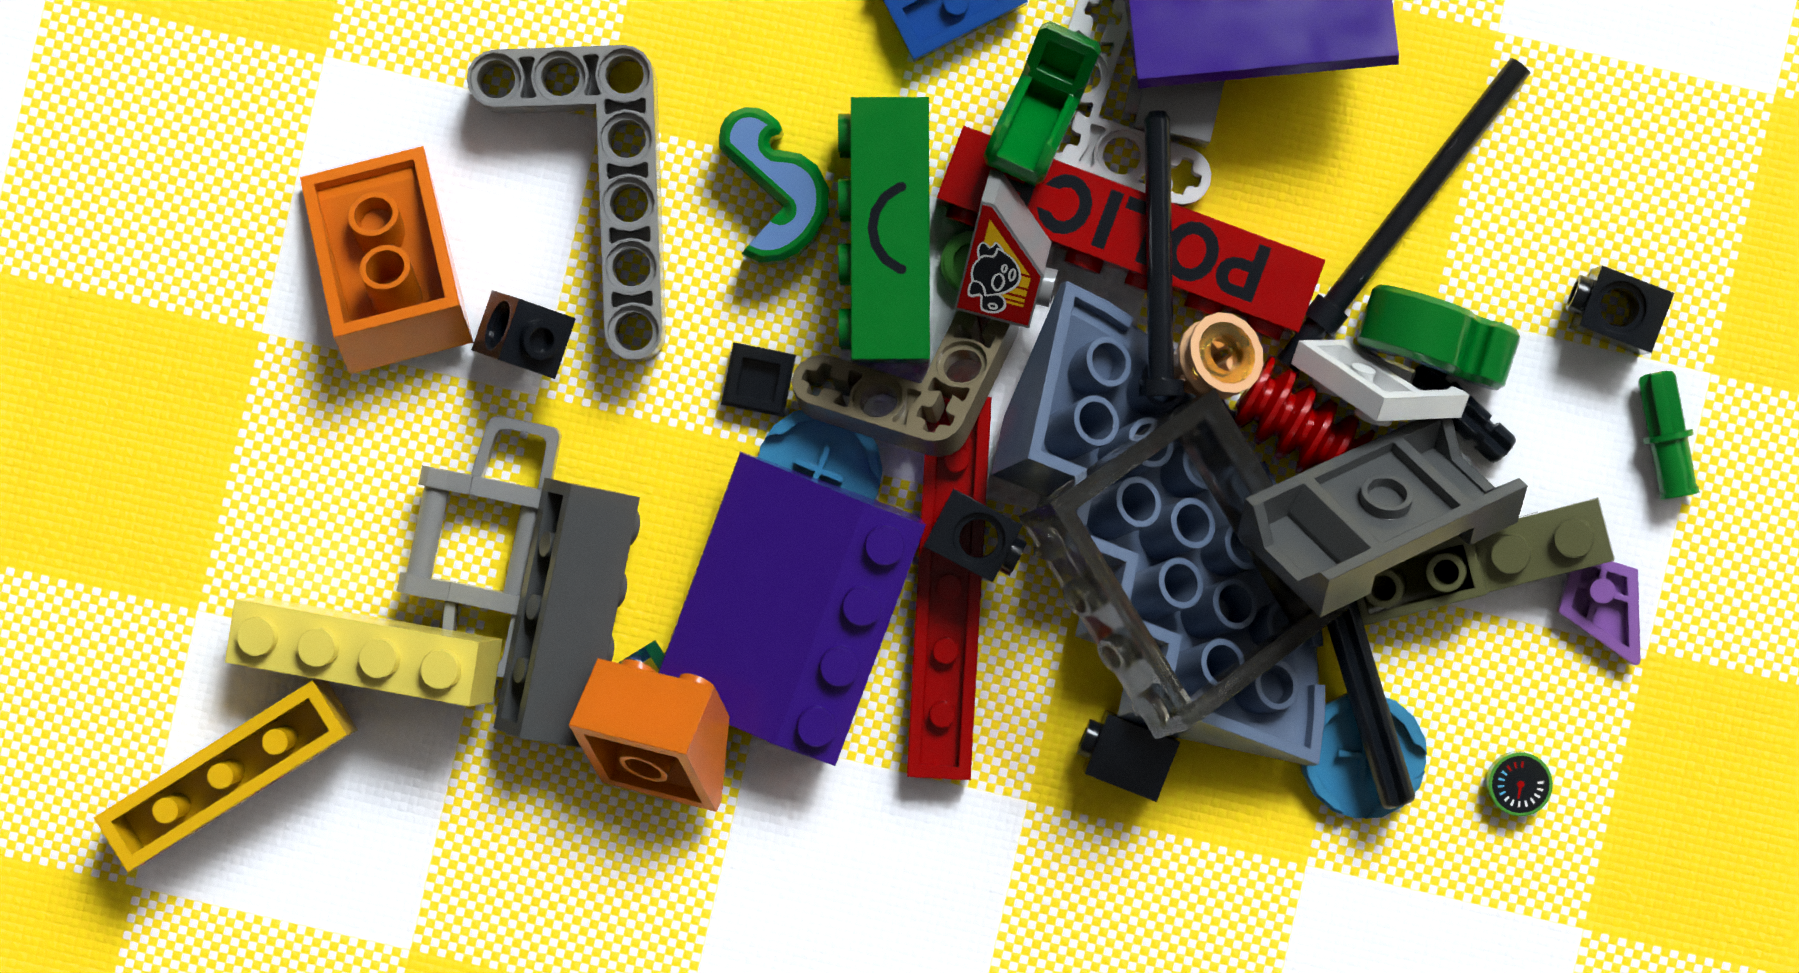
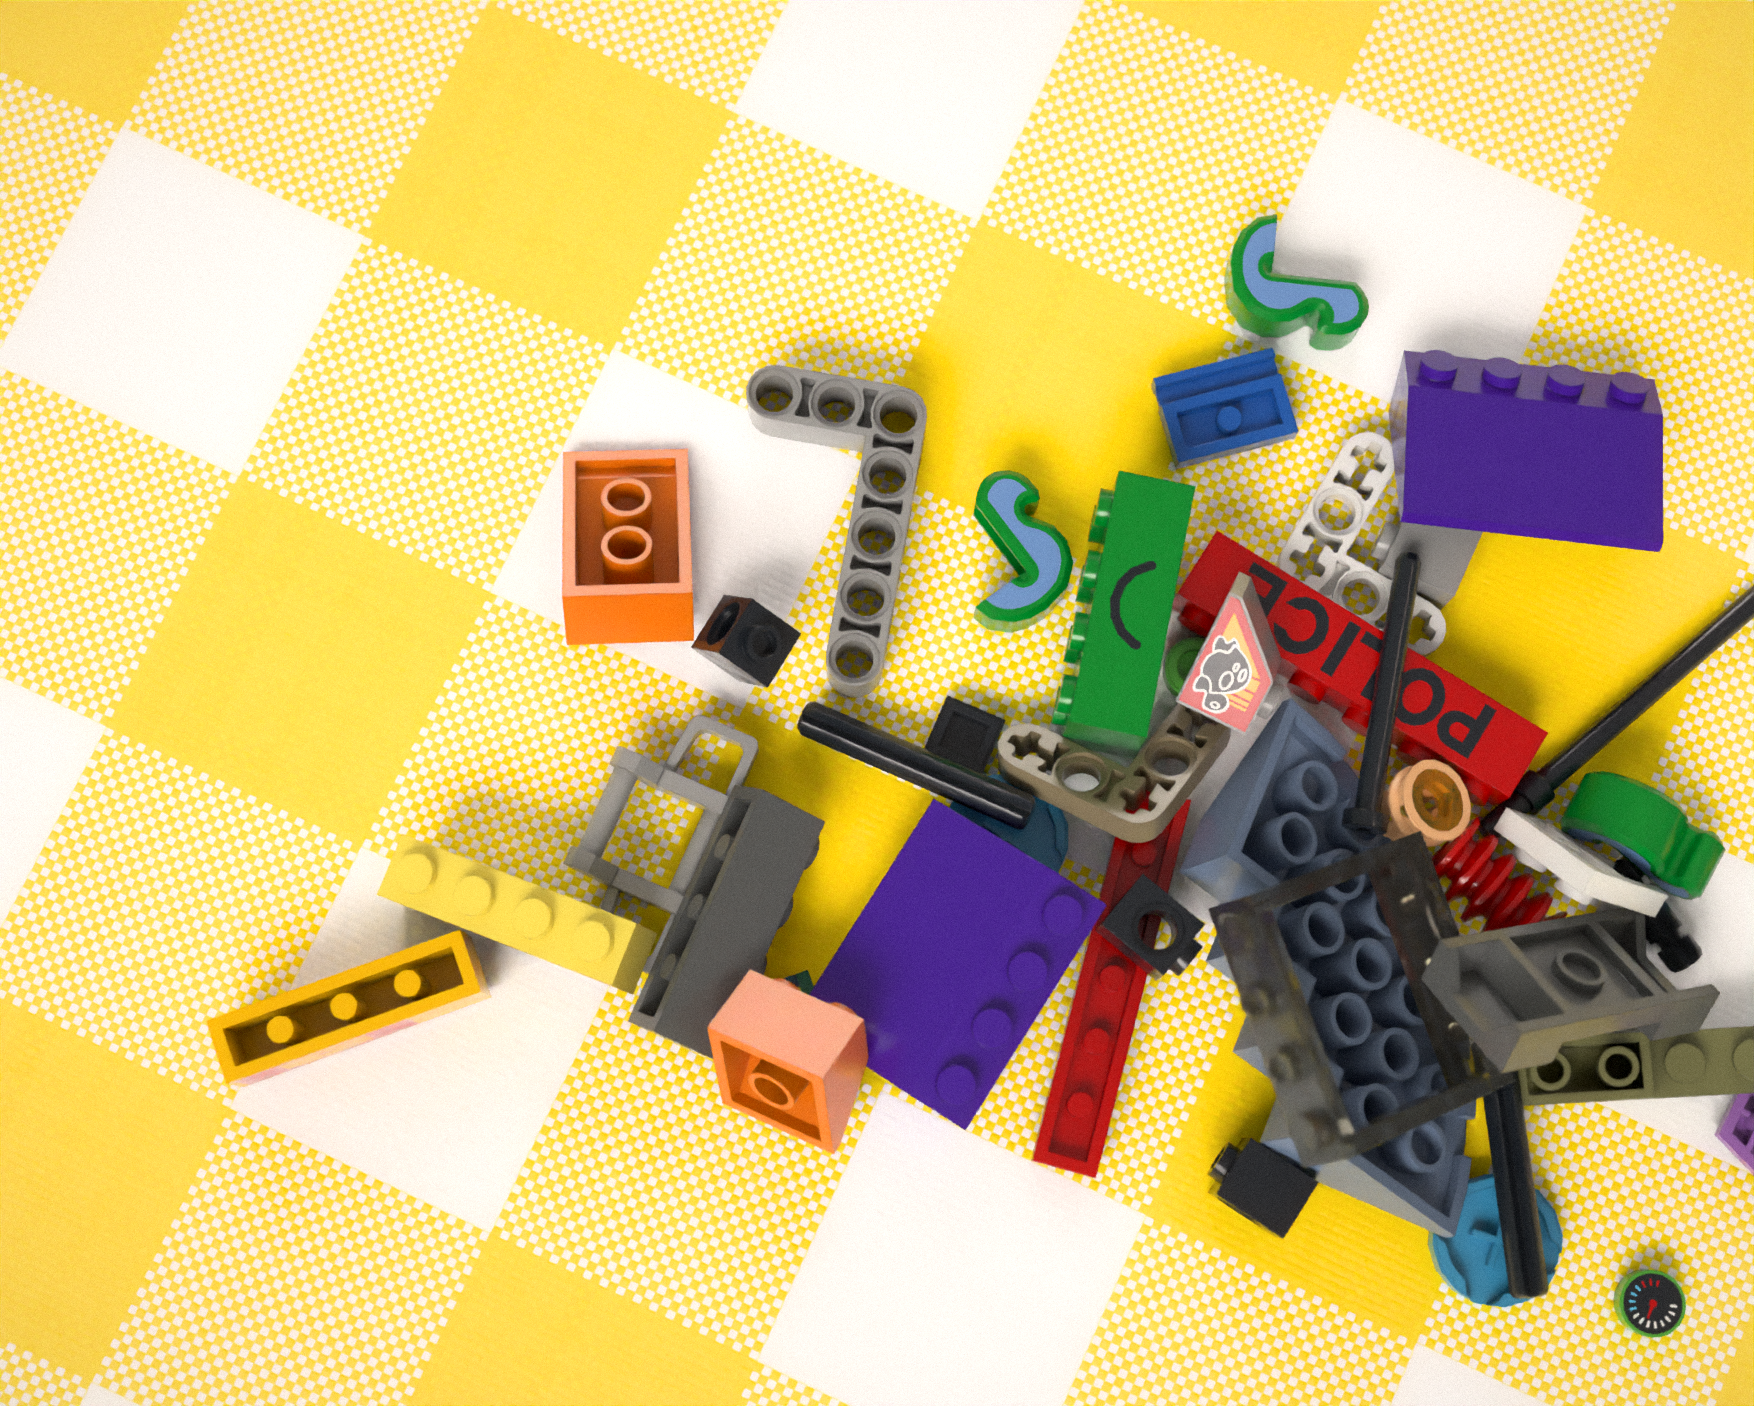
camera: 10 degrees right, 10 degrees down
(717, 419) = (916, 765): none -> black axle
(1042, 103) = (1301, 520): green animal -> none

